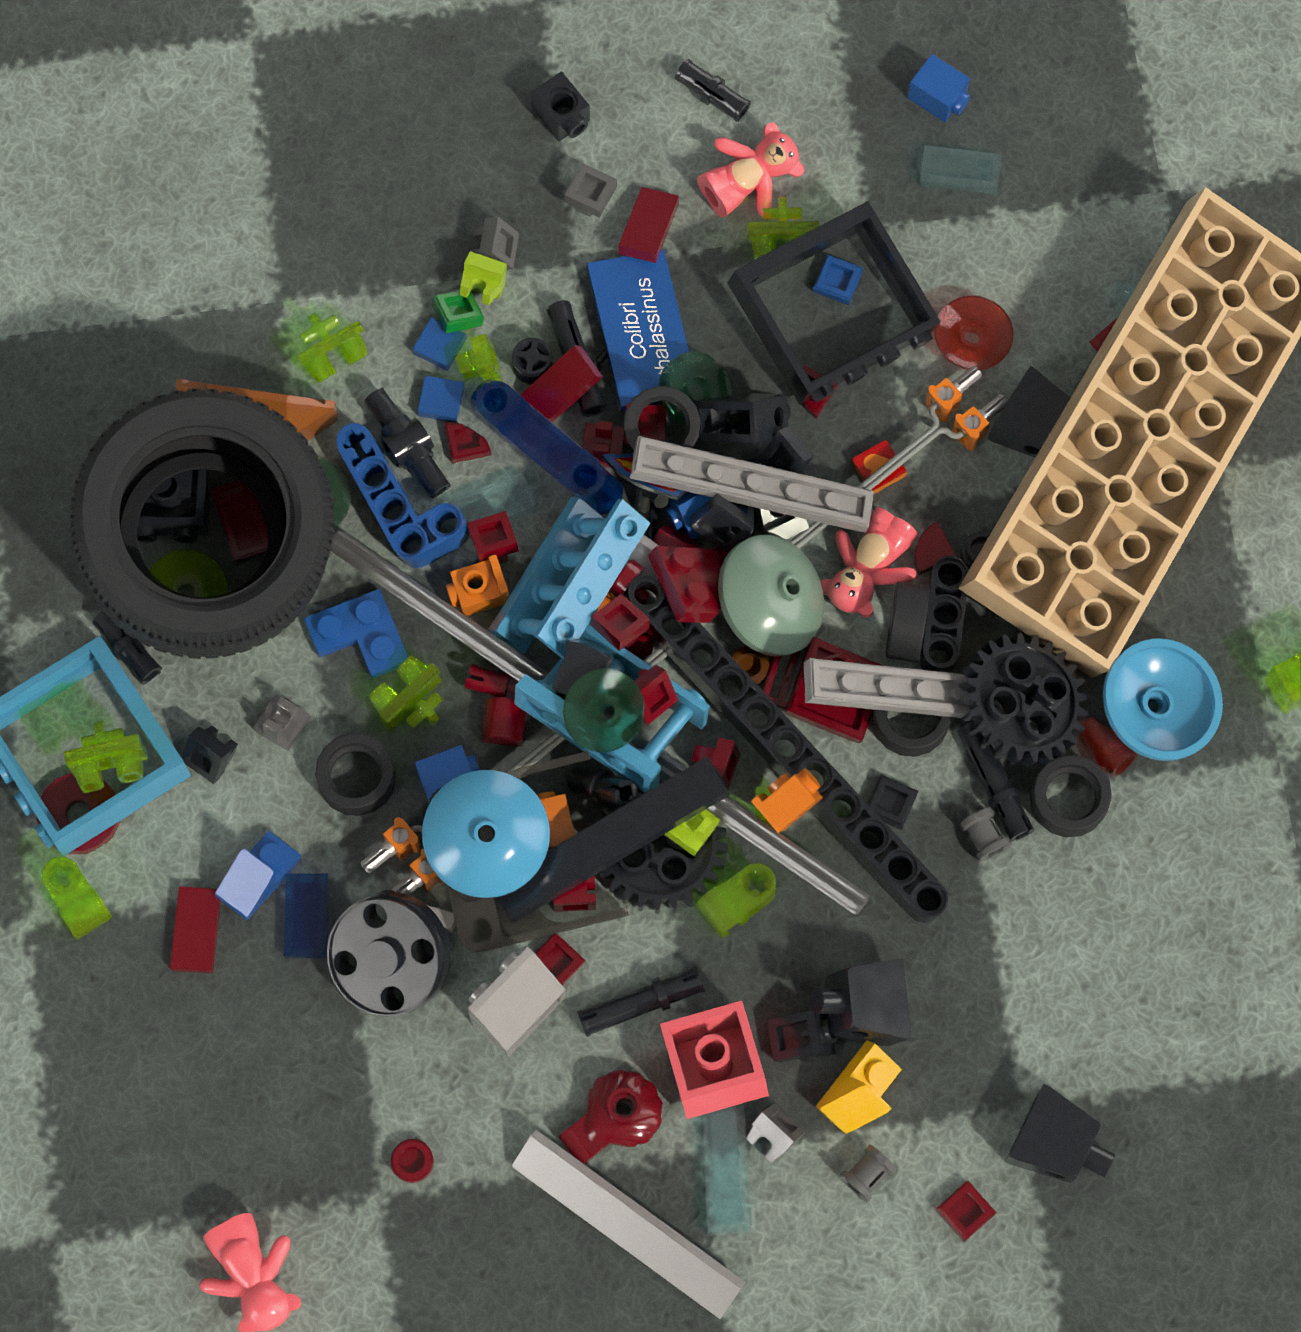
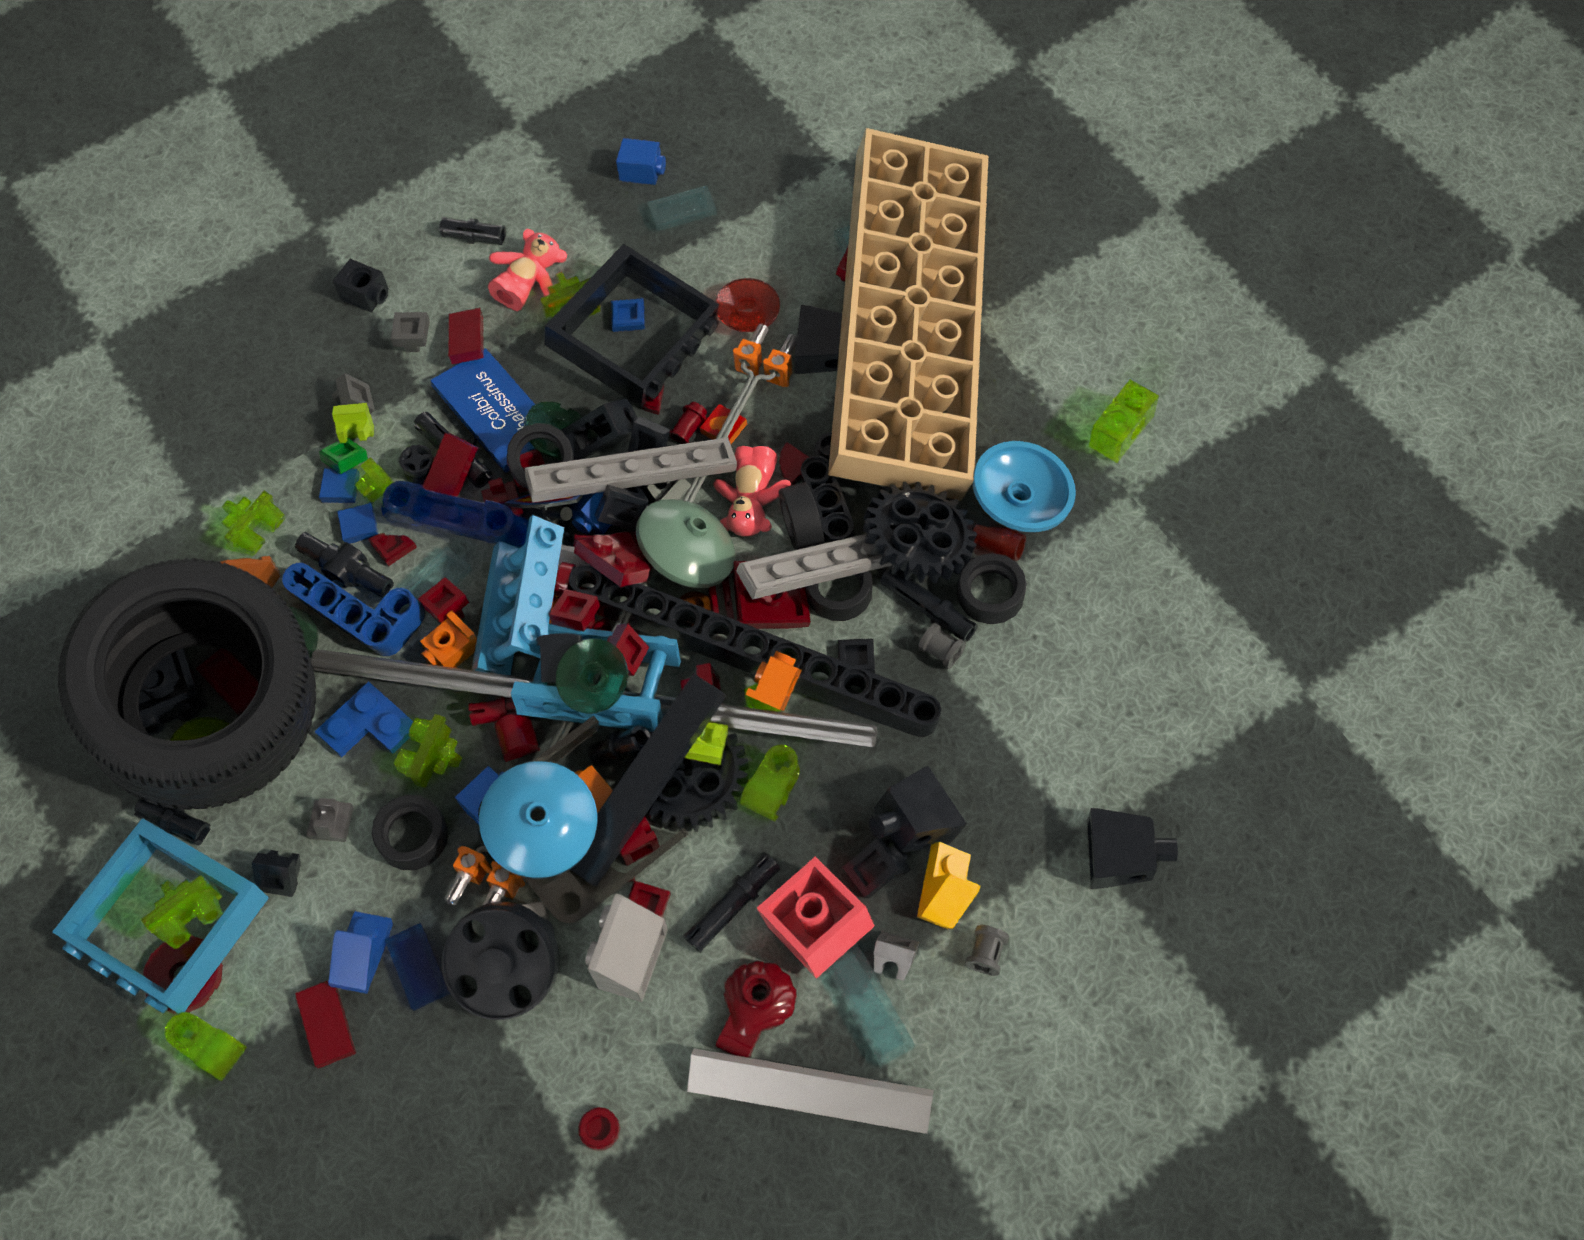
camera: 20 degrees left, 10 degrees down
(842, 446) = (688, 422): none -> dark red pin
(965, 1211) = (1081, 943): dark red tile -> none

